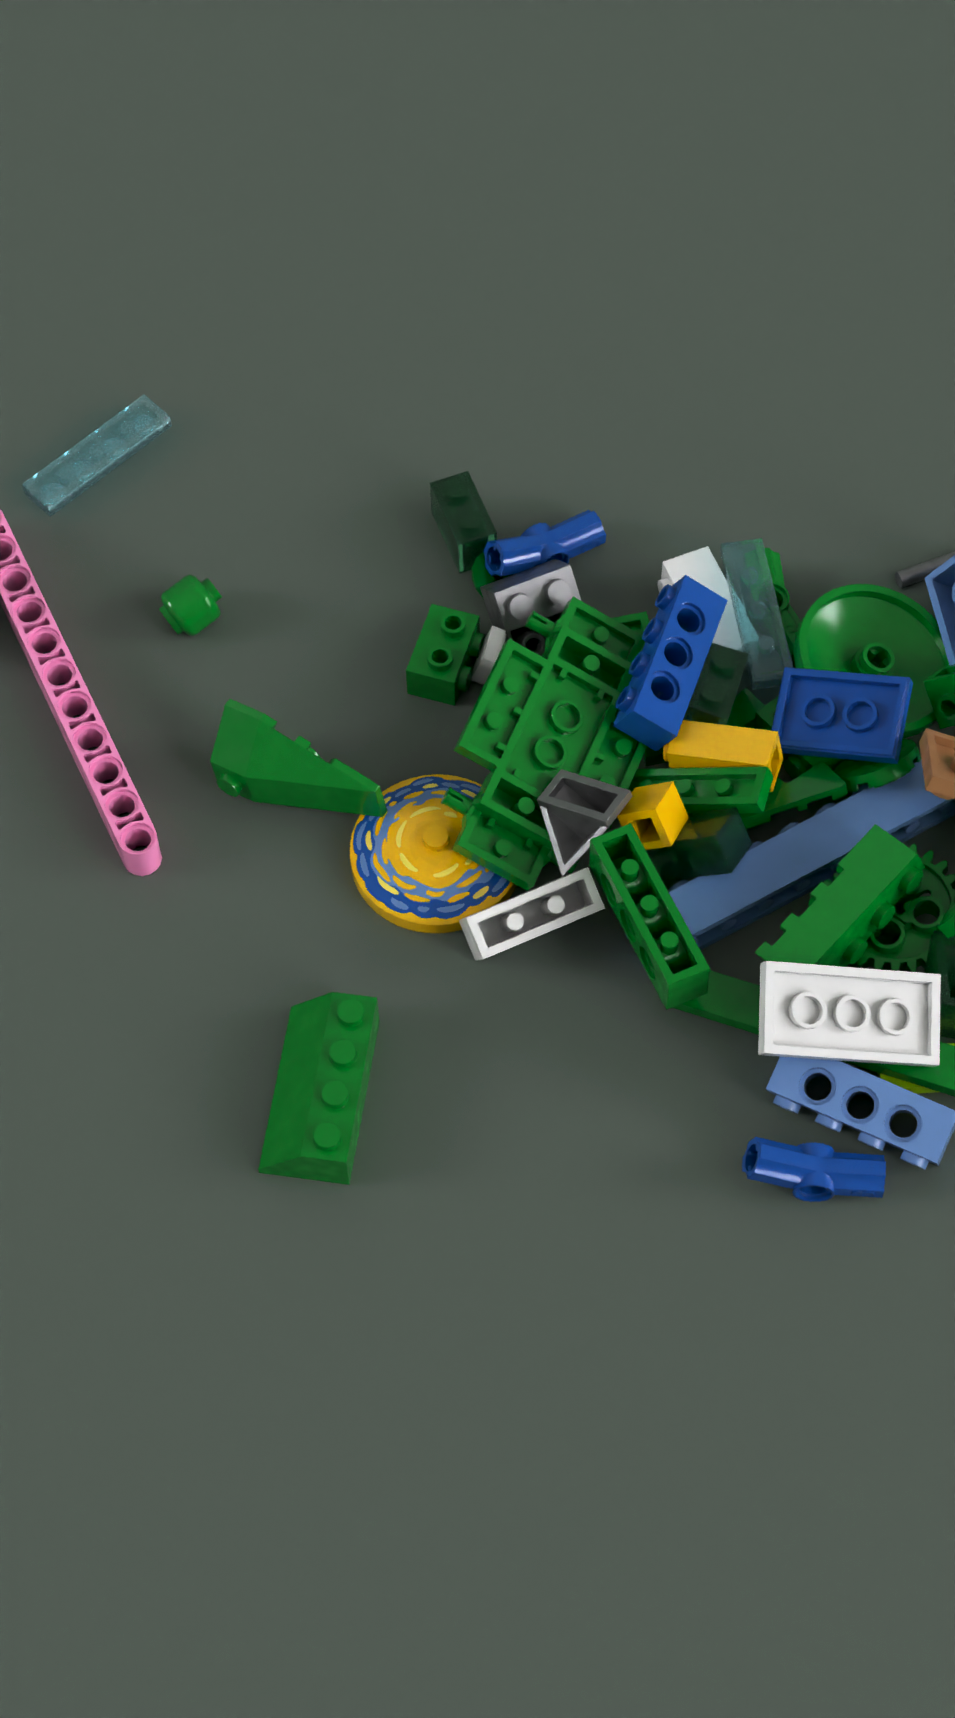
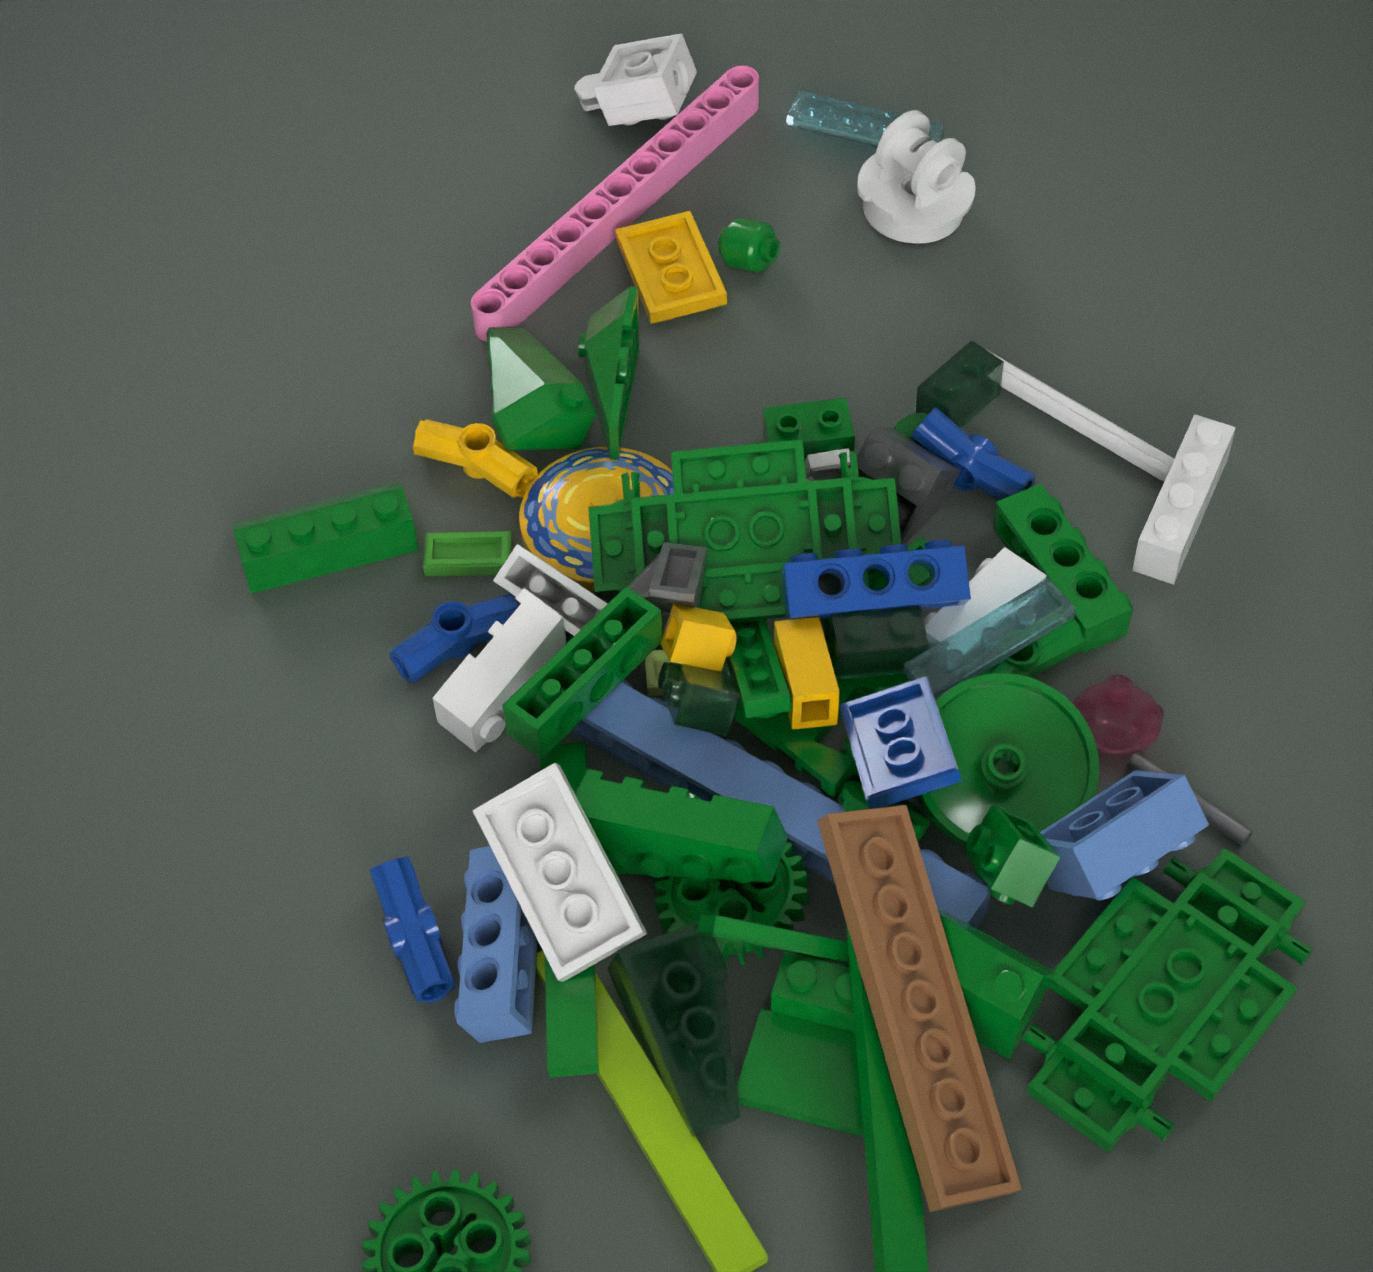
camera: 65 degrees right, 5 degrees down
(170, 678) = (671, 267): none -> yellow plate
(211, 447) = (914, 183): none -> white piece
(277, 843) = (534, 394): none -> green wedge
(286, 938) = (477, 453): none -> yellow piece
(413, 979) = (466, 553): none -> bright green tile
(512, 1040) = (438, 643): none -> blue piece
(539, 453) = (1085, 421): none -> white axle
(584, 992) = (474, 694): none -> white wedge
(672, 421) = (1183, 499): none -> white brick
(673, 529) = (1039, 533): none -> green brick
(855, 562) = (1120, 715): none -> clear pink dish

